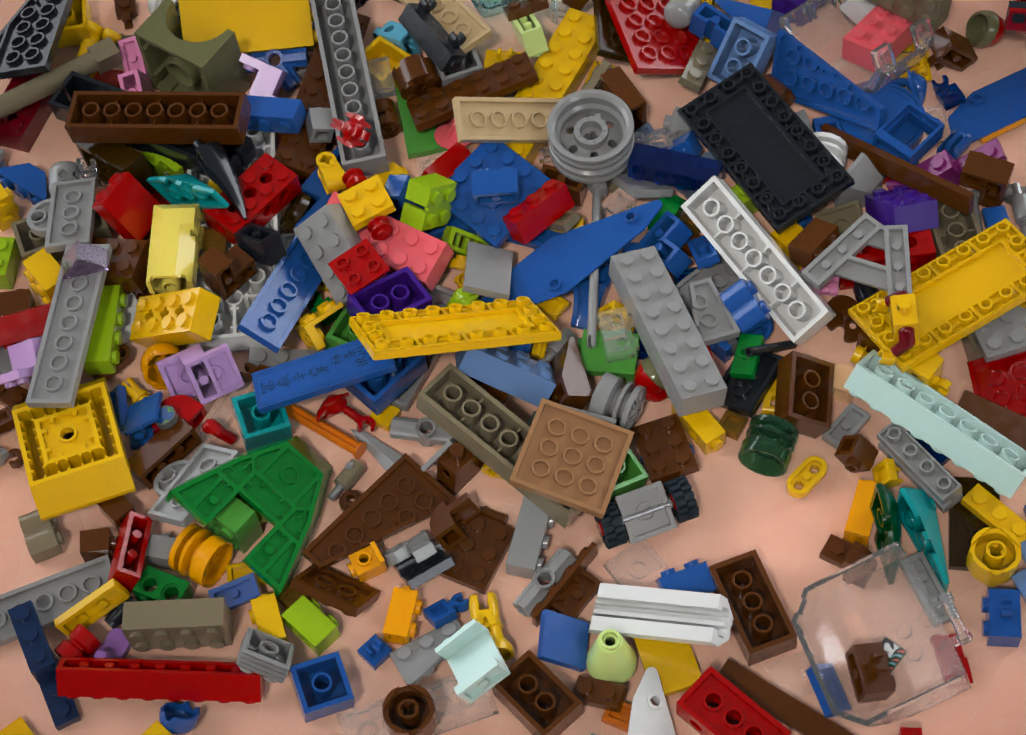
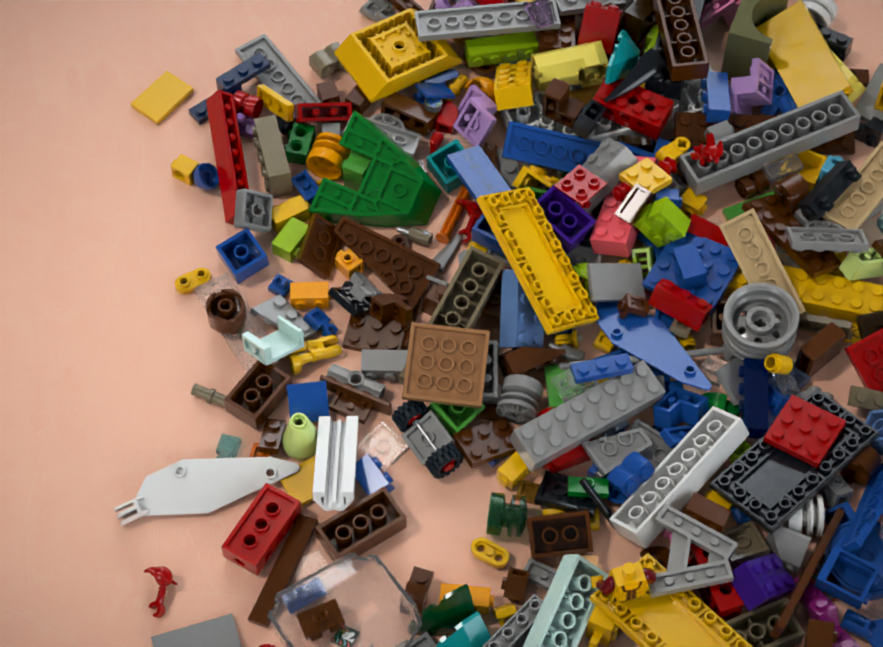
camera: 70 degrees right, 0 degrees up
(402, 218) = (633, 203): none -> tile
(494, 56) = (826, 235): none -> light grey plate
(523, 261) = (633, 304): none -> reddish brown bracket
(617, 295) = (601, 368): none -> blue plate
(645, 131) = (778, 364): none -> yellow brick
(735, 126) = (804, 431): none -> red plate

